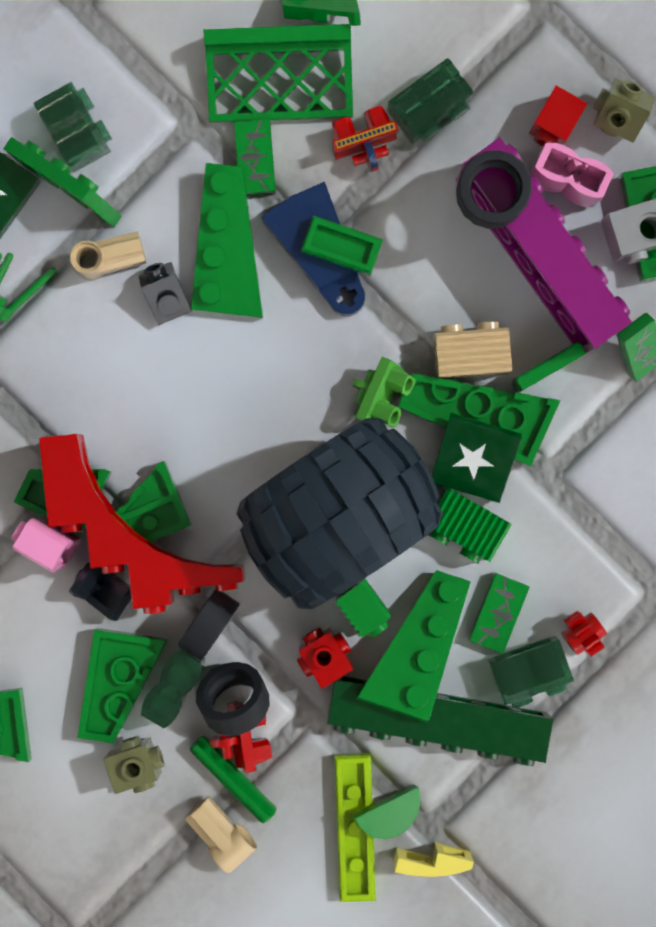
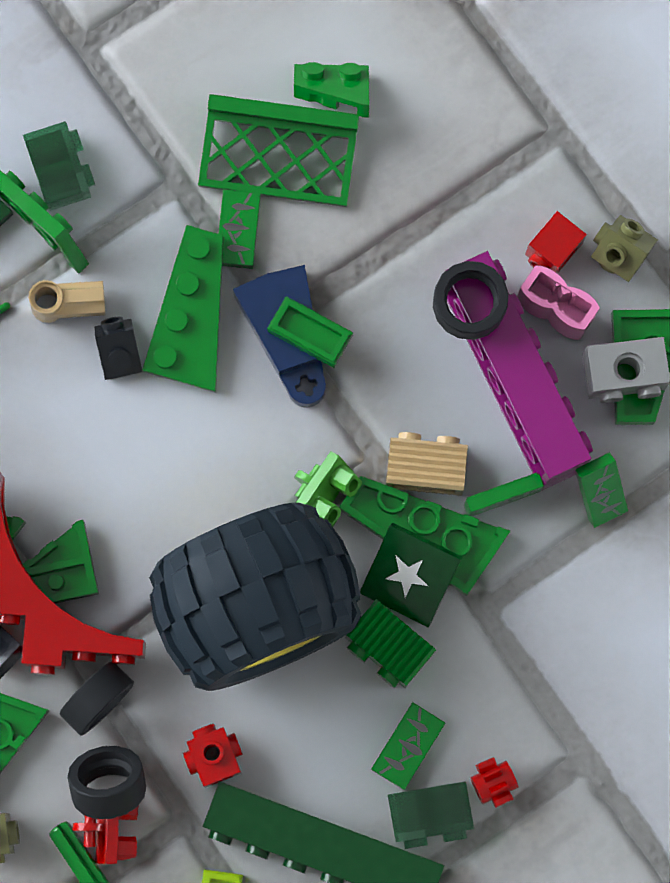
camera: 10 degrees right, 10 degrees down
(171, 691) = (38, 769): clear green brick -> none
(364, 609) = (263, 708): green brick -> none
(379, 132) = (369, 226): red hips -> none
(417, 656) = (311, 771): green wing -> none
(430, 102) = (428, 205): clear green brick -> none

